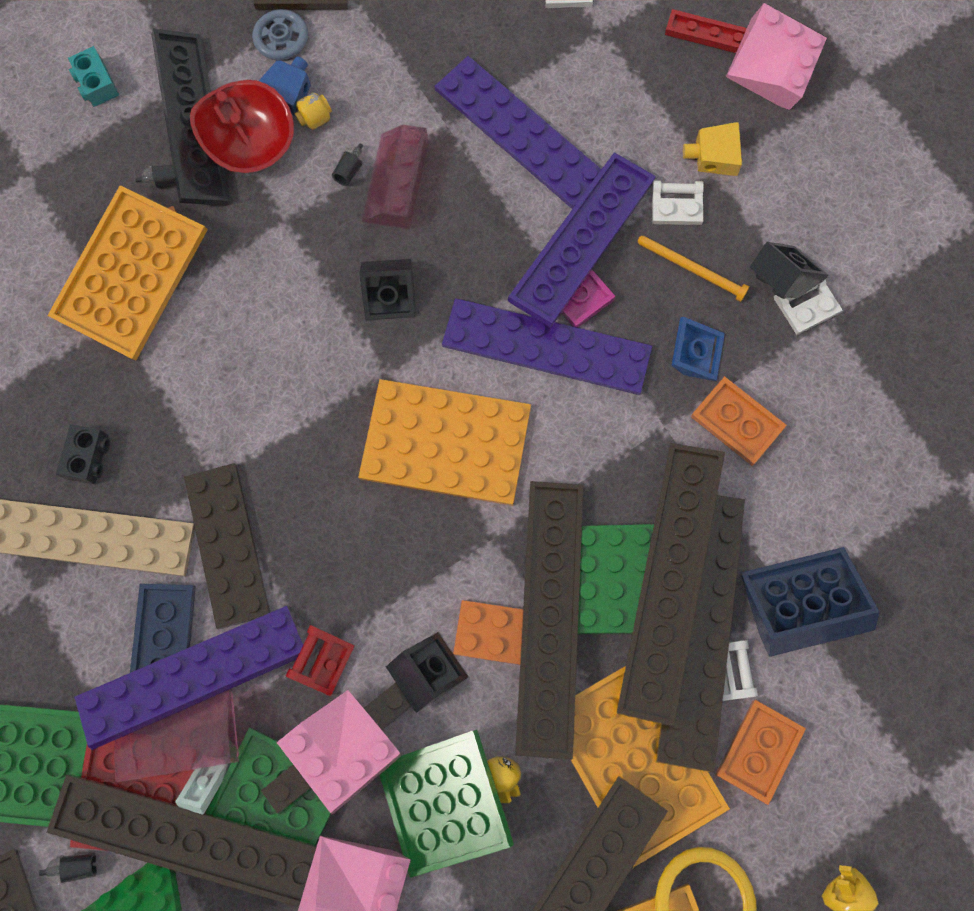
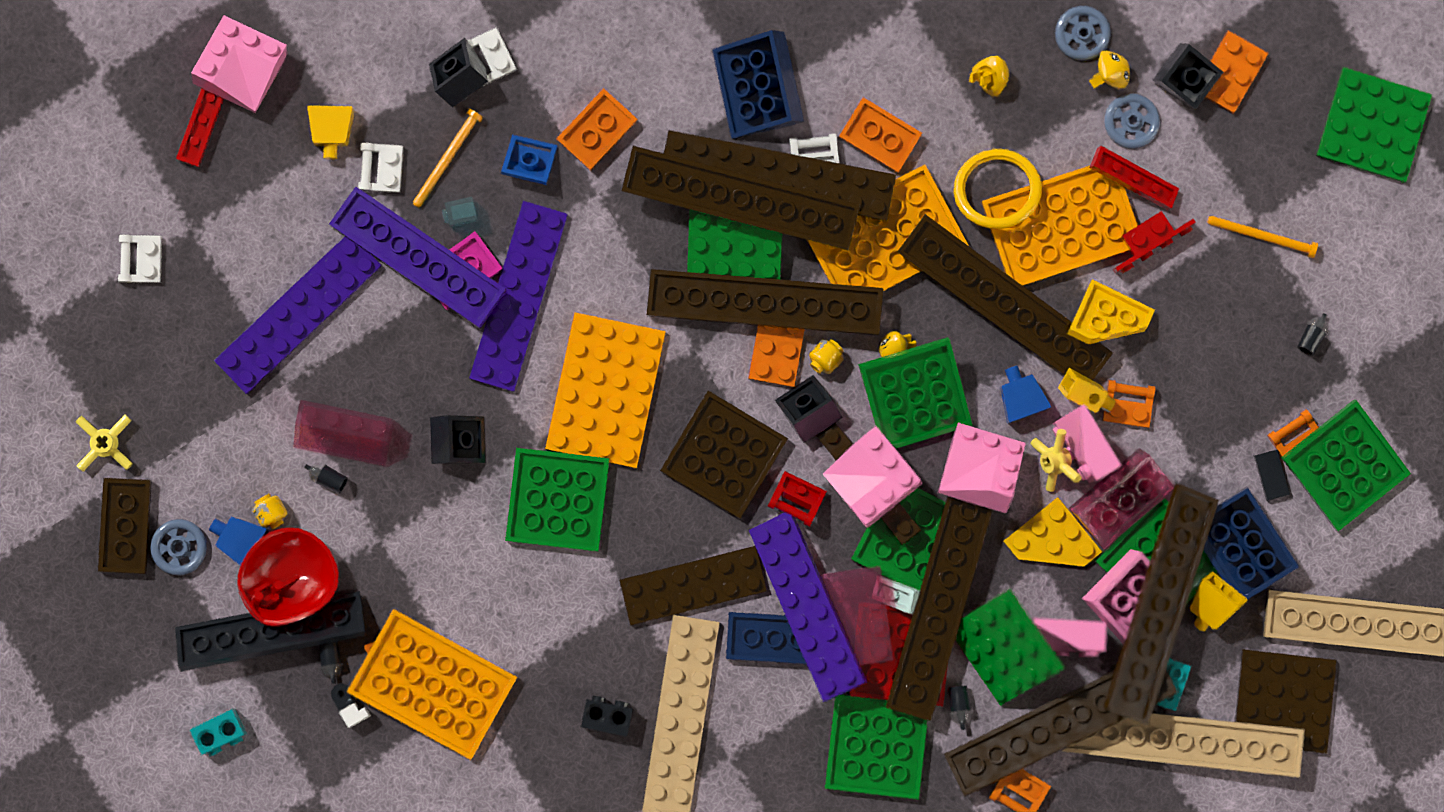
camera: 95 degrees left, 10 degrees up
(104, 193) = (347, 706): none -> leg
(323, 394) = (557, 499): none -> green plate
(373, 575) = (724, 454): none -> dark brown plate
(488, 691) = (826, 356): none -> yellow head
(635, 281) = (460, 212): none -> clear light blue brick

